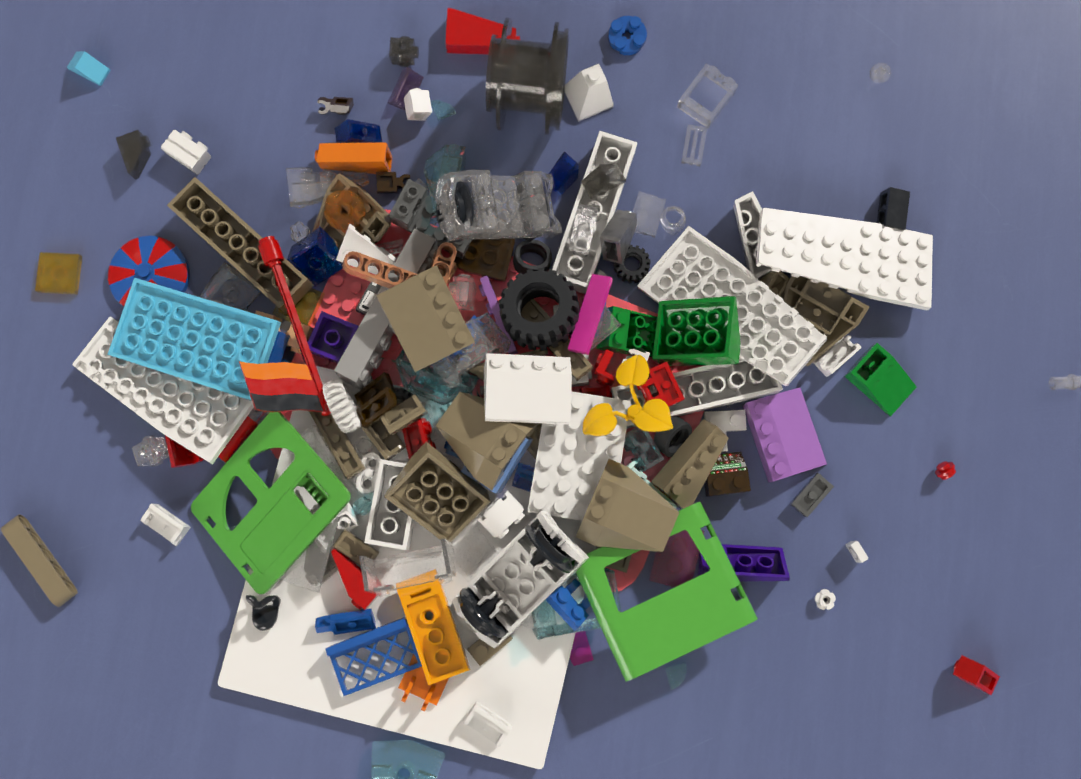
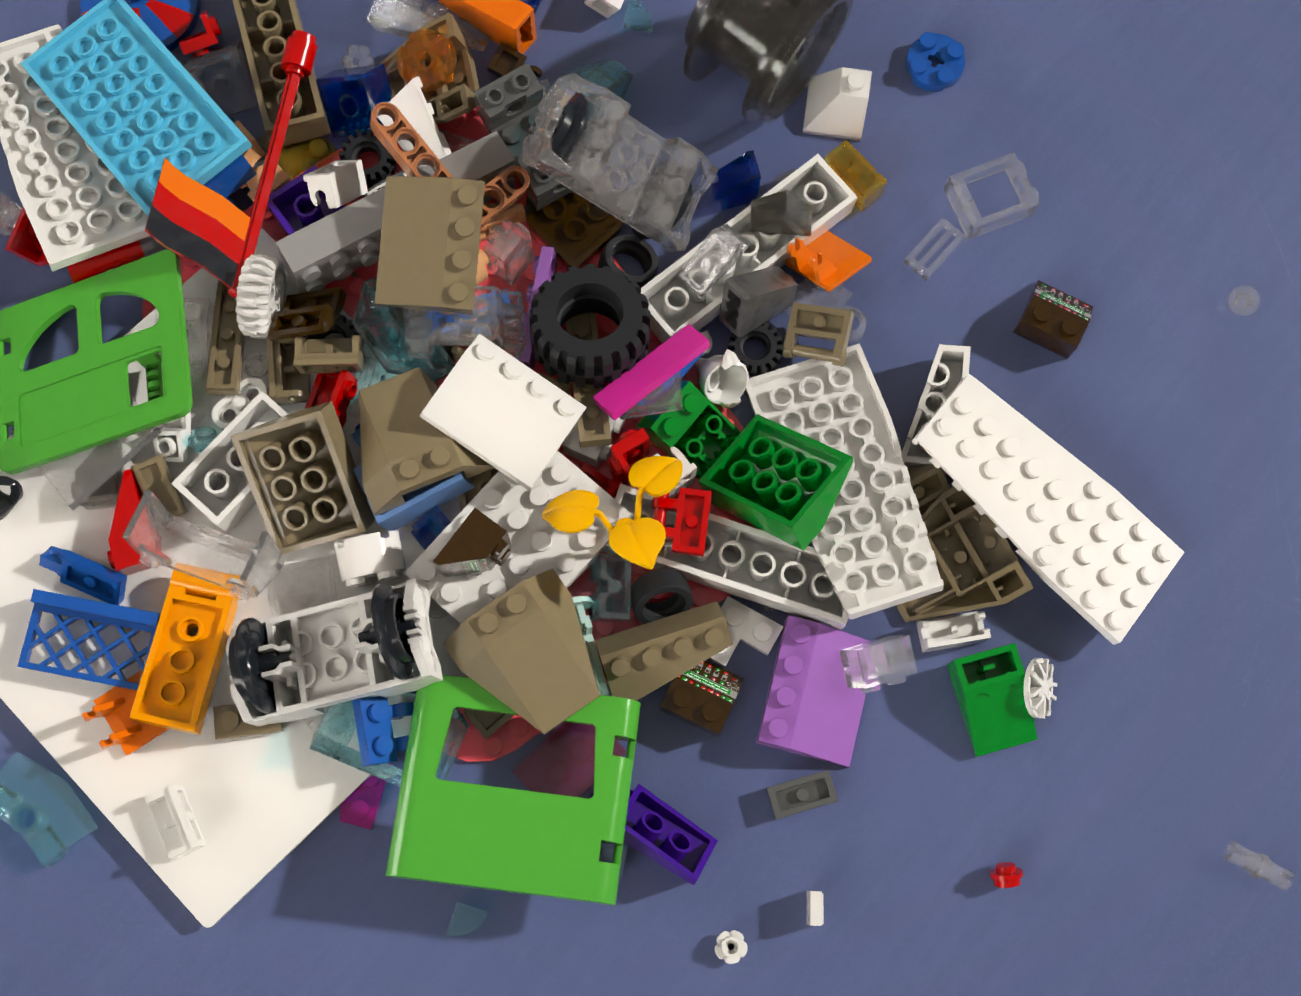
camera: 25 degrees right, 5 degrees down
(202, 276) = (199, 43): none -> red bracket
(341, 311) = (339, 181): none -> white hinge
(345, 300) = (365, 144): none -> black tyre
(563, 473) = (474, 547): none -> dark brown slope
(626, 128) = (857, 174): none -> clear yellow brick
(627, 292) = (722, 378): none -> white hat
(642, 189) = (826, 260): none -> orange plate
(661, 228) = (818, 323): none -> dark tan plate
(785, 146) = (1054, 320): none -> dark brown slope
(810, 398) = (878, 662): none -> clear brick
(893, 208) = (1152, 484): black hinge -> none
(902, 358) = (1039, 687): none -> white wheel

